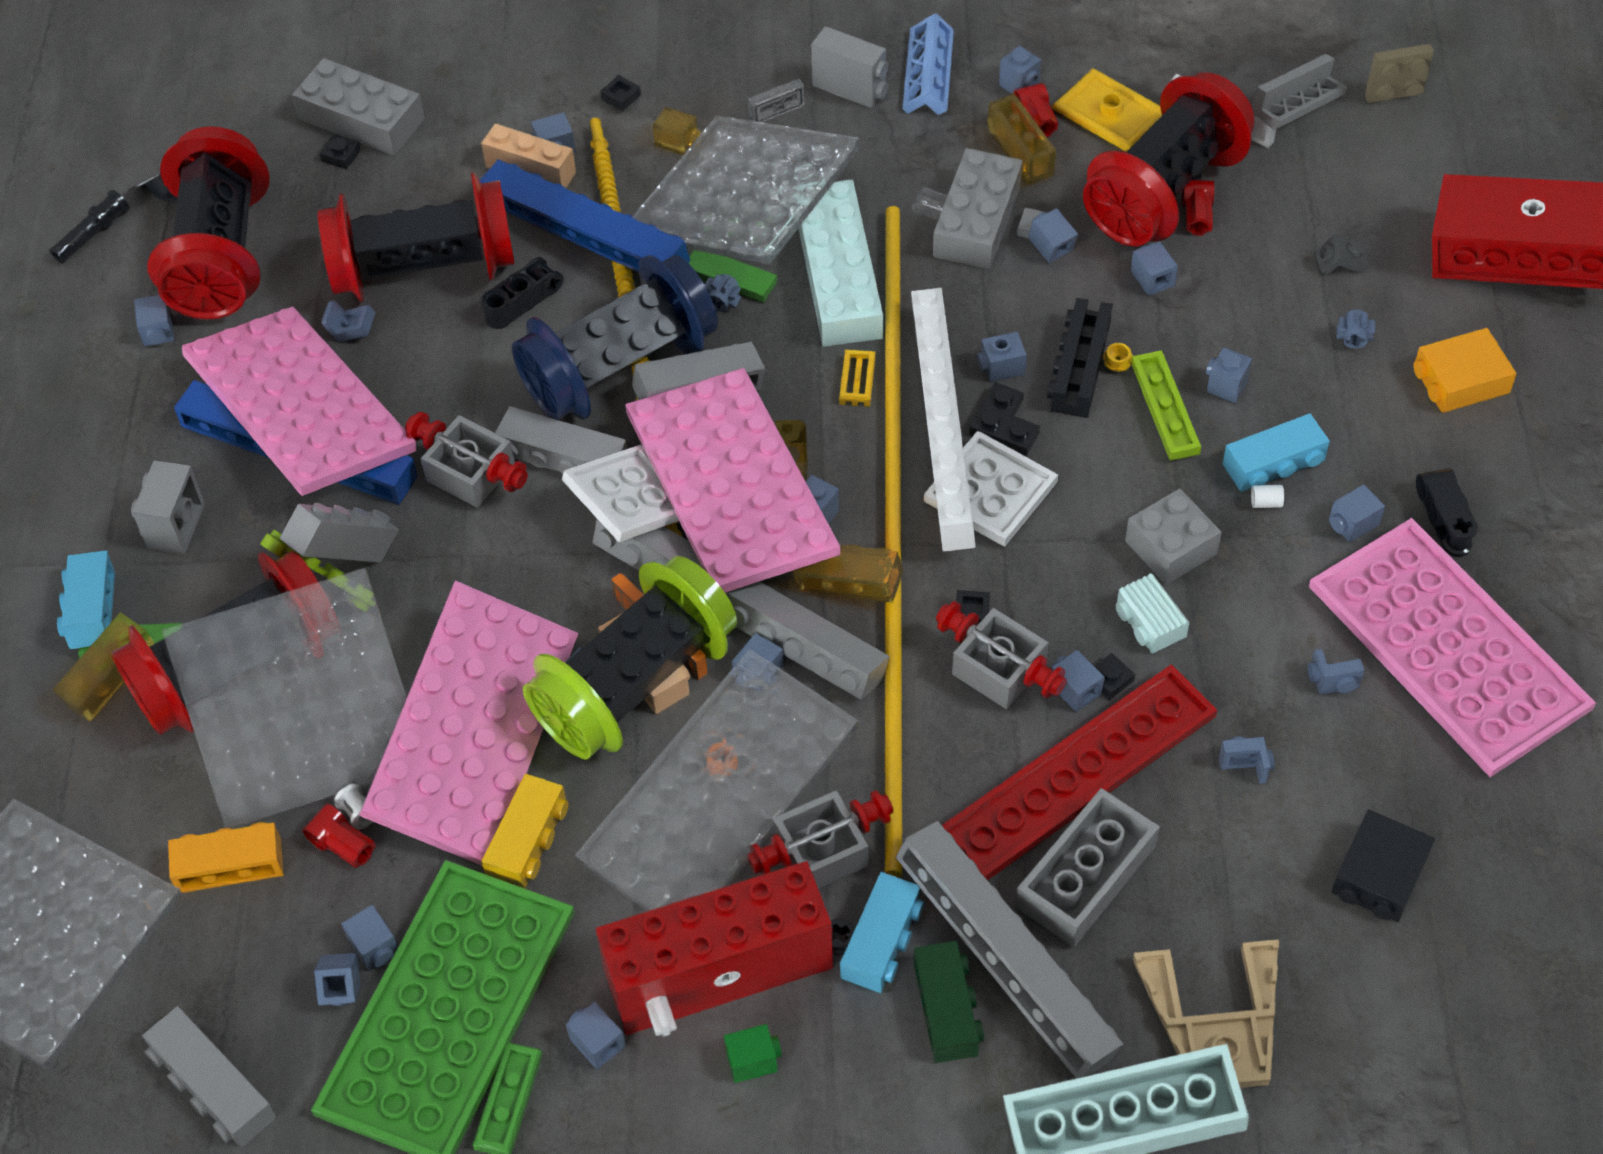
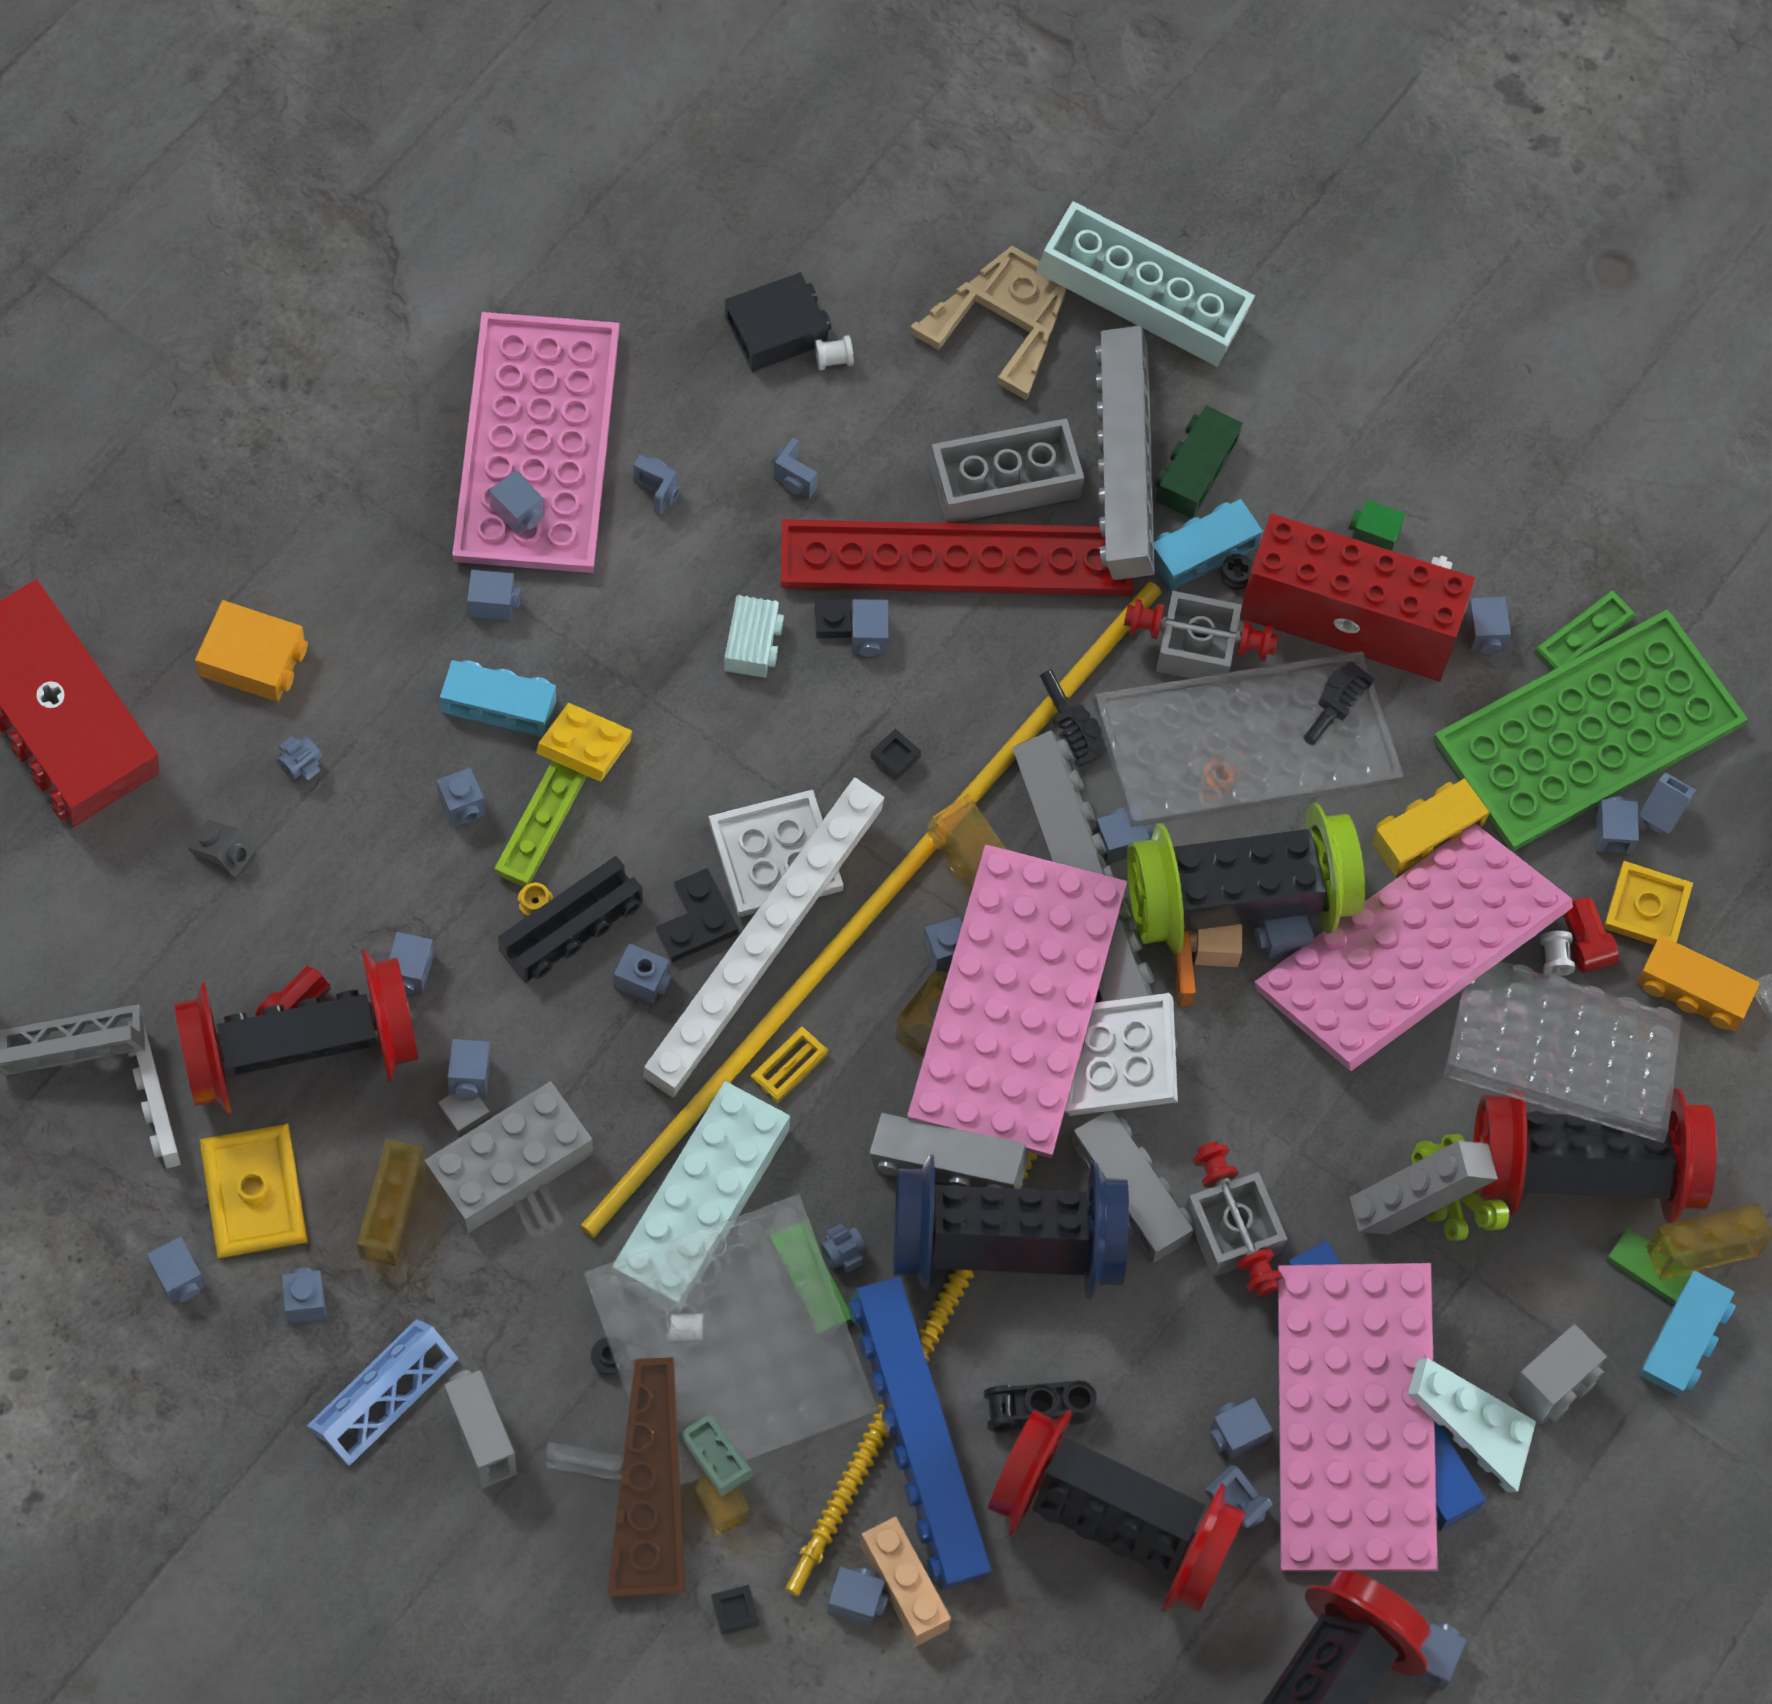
camera: 150 degrees left, 10 degrees up
(216, 437) = (1477, 1420): none -> light aqua wing
(305, 895) = (1647, 904): none -> yellow plate
(376, 359) = (1239, 1428): none -> sand blue brick
(672, 870) = (1337, 697): none -> black piece
(697, 132) = (715, 1454): none -> sand green plate
(714, 94) = (649, 1516): none -> reddish brown wing
(872, 716) = (1078, 727): none -> black piece
(999, 655) = (919, 678): light grey brick -> none
(1036, 102) = (328, 1247): red piece -> none
(1106, 42) = (176, 1271): none -> sand blue brick
(1173, 536) = (667, 686): light grey brick -> none
(1189, 461) = (584, 742): none -> yellow plate
(1267, 496) = (546, 668): white hinge -> none
(1314, 875) = (834, 352): none -> white bush
(1406, 569) = (517, 503): none -> sand blue brick
(1447, 510) = (411, 543): black piece -> none

